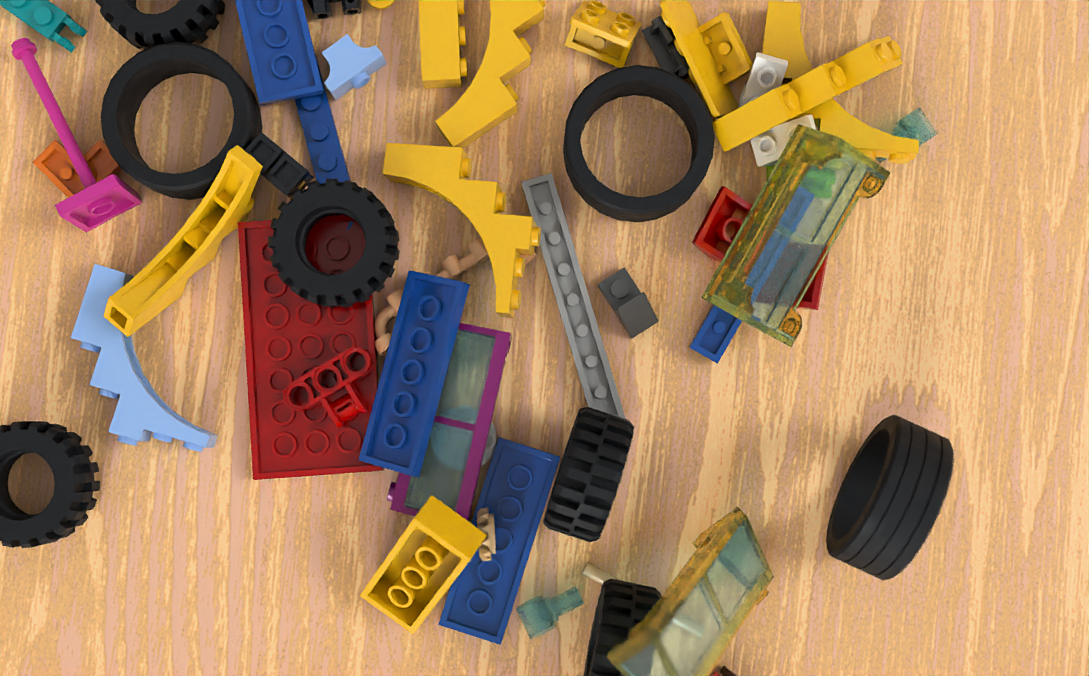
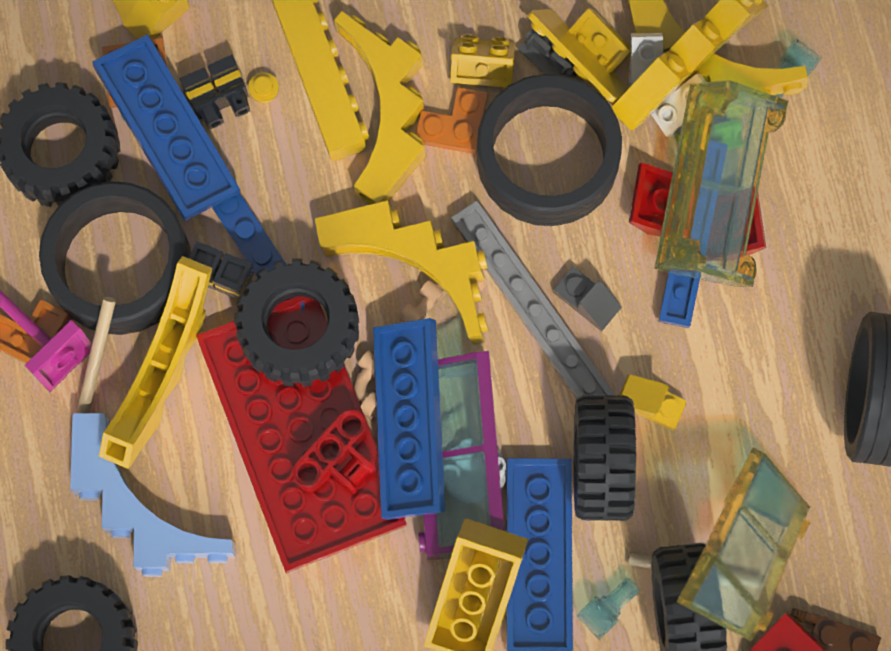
camera: 15 degrees left, 10 degrees down
(132, 214) = (96, 355): none -> tan bar
(350, 65) = (257, 160): light blue brick -> none
(486, 524) = (531, 555): tan gear -> none
(556, 94) = (455, 131): none -> orange plate
(656, 425) = (654, 401): none -> yellow slope

